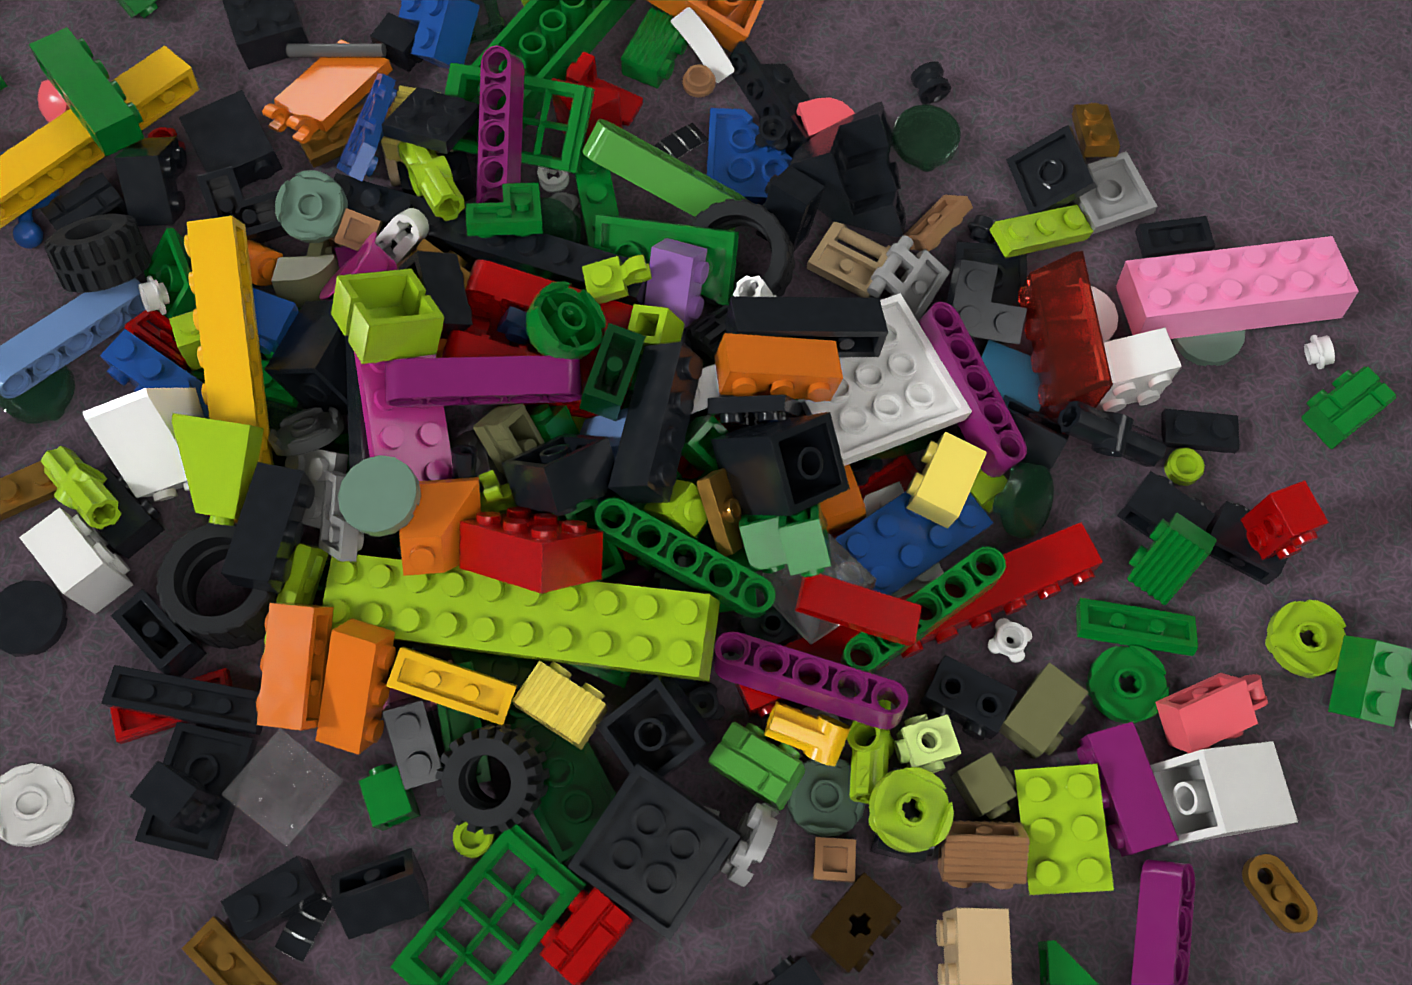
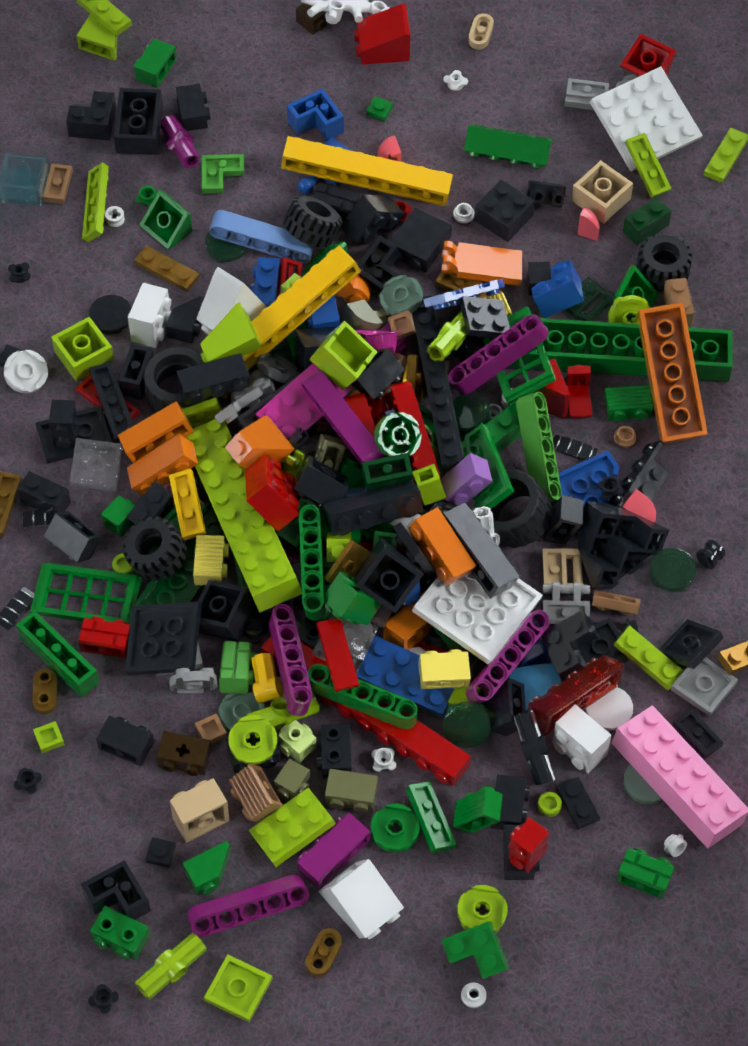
camera: 60 degrees right, 10 degrees down
(57, 693) = (82, 348): none -> lime brick
(81, 487) = (185, 292): lime piece -> none
(87, 91) = (394, 159): green brick -> none
(154, 295) = (307, 259): white plate -> none
(227, 65) = (463, 208): none -> white plate
(336, 50) = (510, 252): dark grey bar -> none
(379, 495) = (254, 410): sand green tile -> none
(396, 231) = (411, 345): white beam -> none
(516, 215) = (450, 385): green plate -> none
(609, 278) = (442, 445): lime plate -> none
(703, 43) = (646, 424): white sticker -> none
(1211, 711) = (404, 872): coral brick -> none

